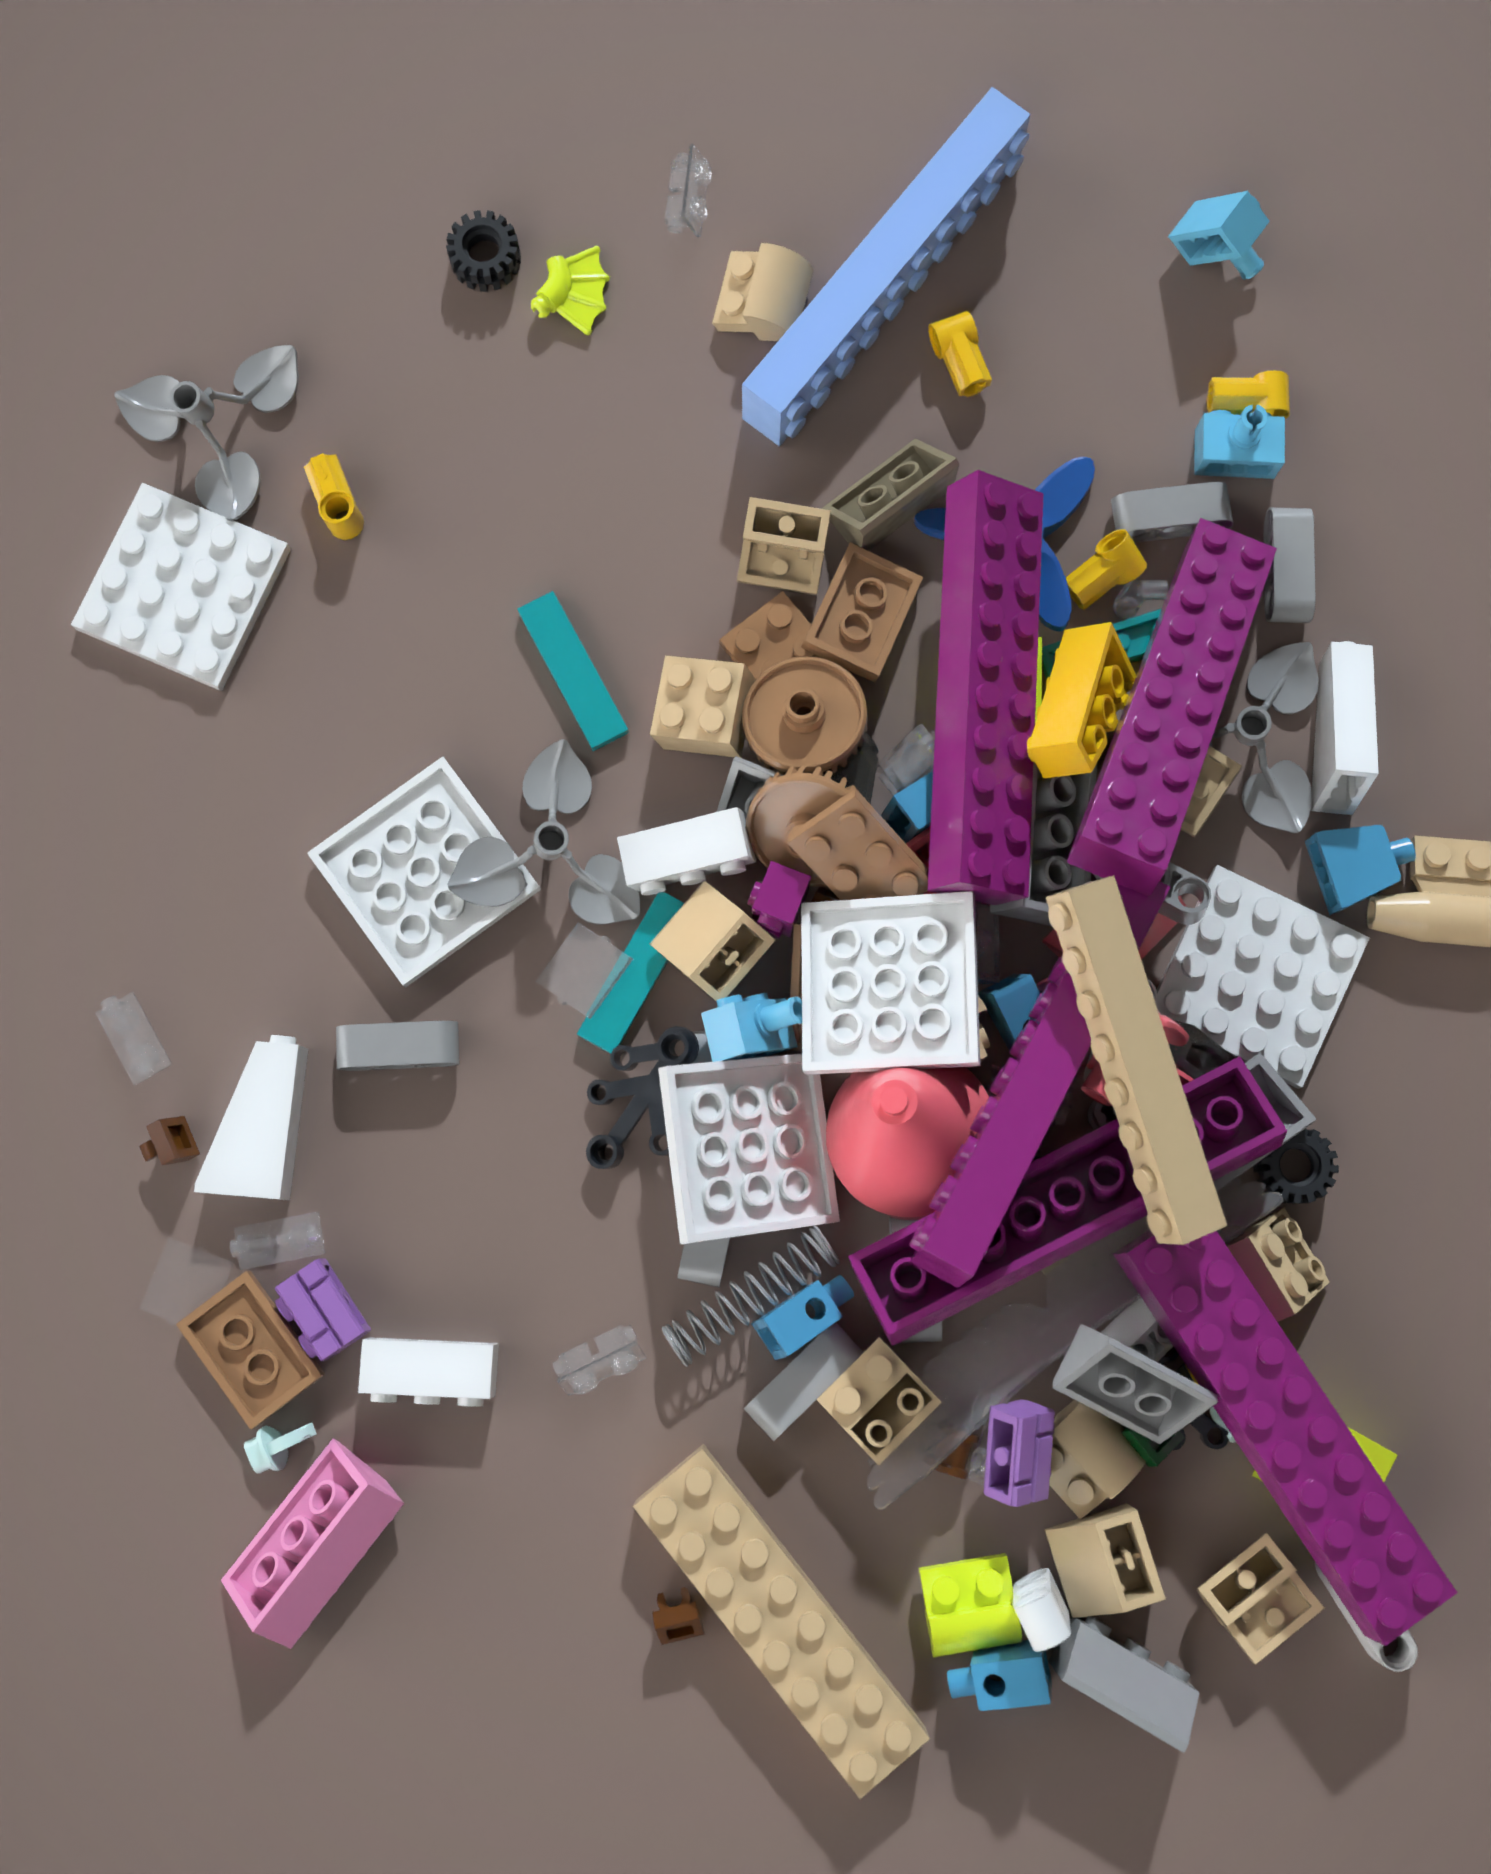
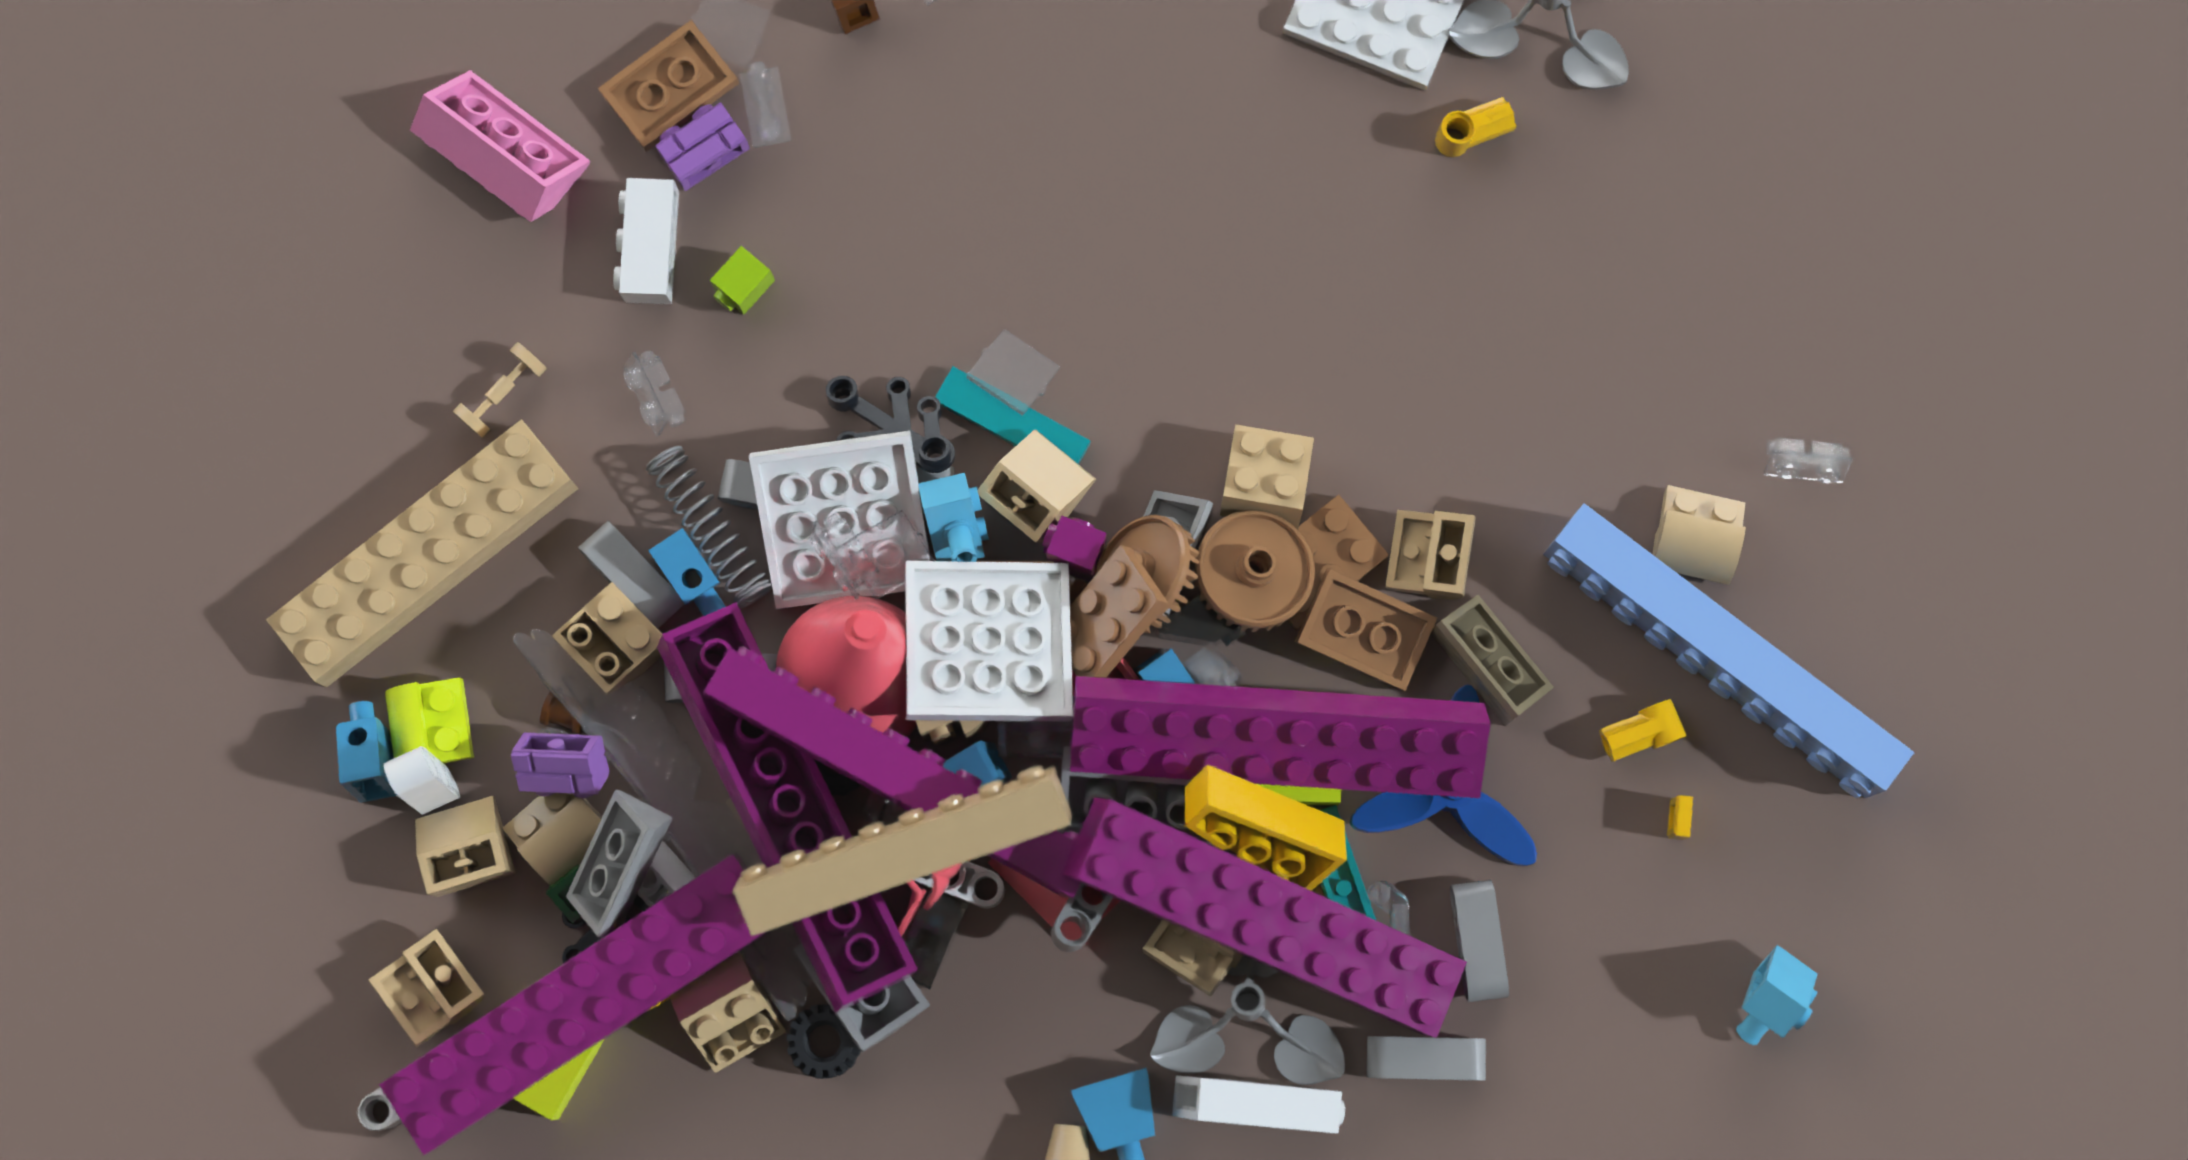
camera: 90 degrees right, 0 degrees up
(260, 1127) = (867, 85): white slope -> none
(270, 1448) = (582, 107): light aqua piece -> none
(397, 866) = (1107, 223): white plate -> none
(397, 1045) = (941, 204): light grey beam -> none
(478, 1264) = (741, 281): none -> lime brick
(481, 230) = (1740, 238): black tyre -> none
(491, 876) = (1099, 282): light grey plant -> none
(573, 289) = (1700, 350): neon yellow arm -> none
(573, 671) = (1306, 356): teal tile -> none
(595, 1535) = (500, 389): none -> tan wheel
(678, 1621) = (422, 464): reddish brown tile -> none
(686, 851) = (1123, 461): white brick -> none
(778, 1153) = (834, 543): none -> clear hinge
(786, 1097) = (889, 547): none -> clear piece
(1046, 320) = (1680, 817): none -> yellow tile
(1114, 563) = (1423, 879): yellow piece -> none
(1127, 1681) = (357, 862): light grey slope -> none
(1240, 444) = (1553, 1011): medium azure brick -> none
(1261, 975) = (1009, 1014): white plate -> none
(1265, 389) = (1605, 1036): yellow piece -> none

